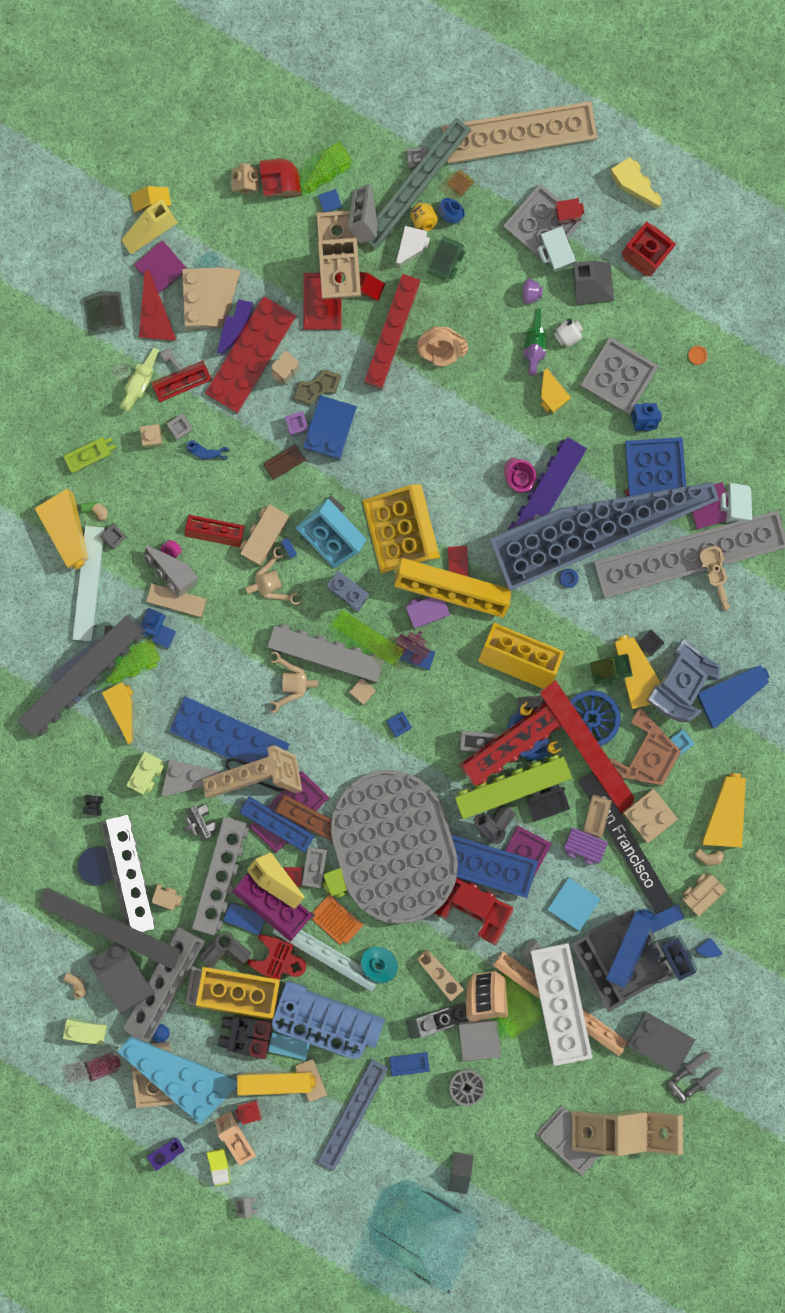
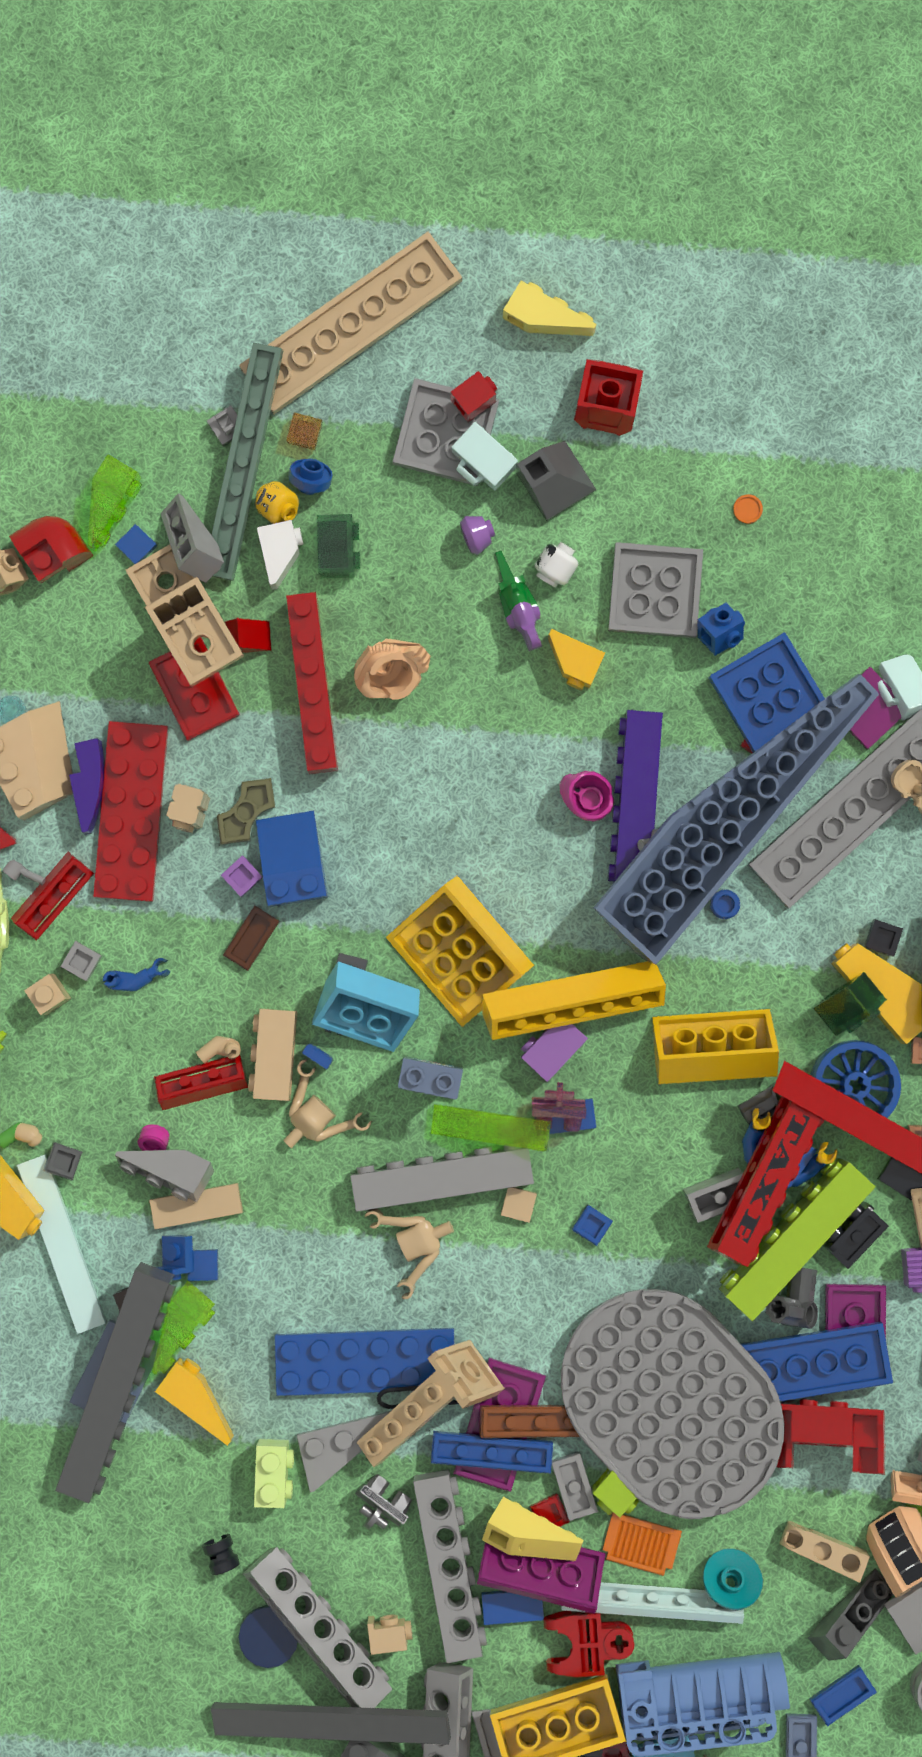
camera: 30 degrees left, 0 degrees up
(216, 950) = (495, 1671): dark grey piece -> none
(235, 515) = (221, 1046): none -> tan arm
(458, 560) = (561, 956): red plate -> none

